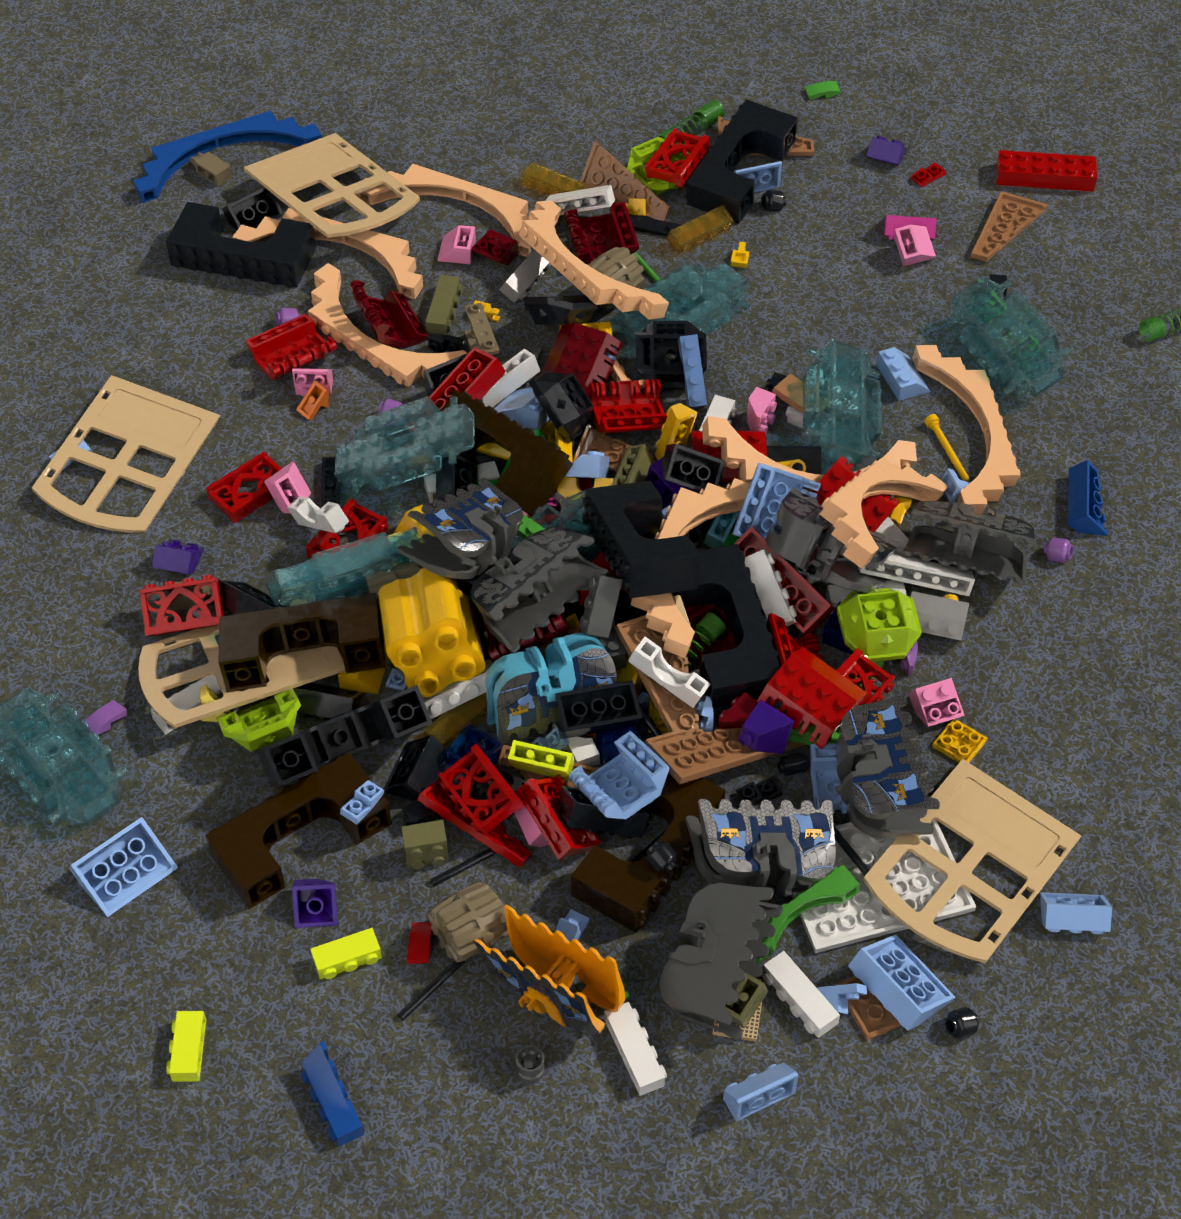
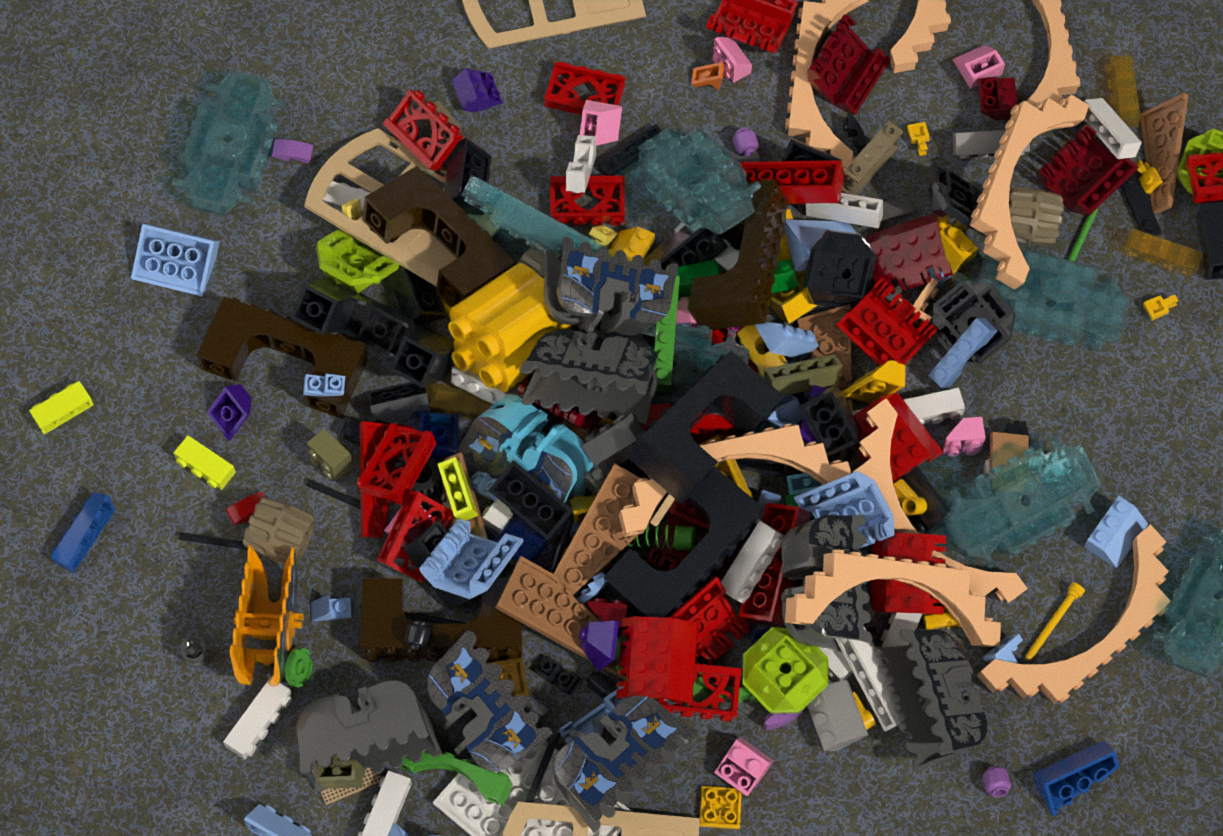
camera: 55 degrees right, 15 degrees up
(443, 305) = (899, 101): olive brick -> none
(686, 686) = (596, 533): white arch -> none

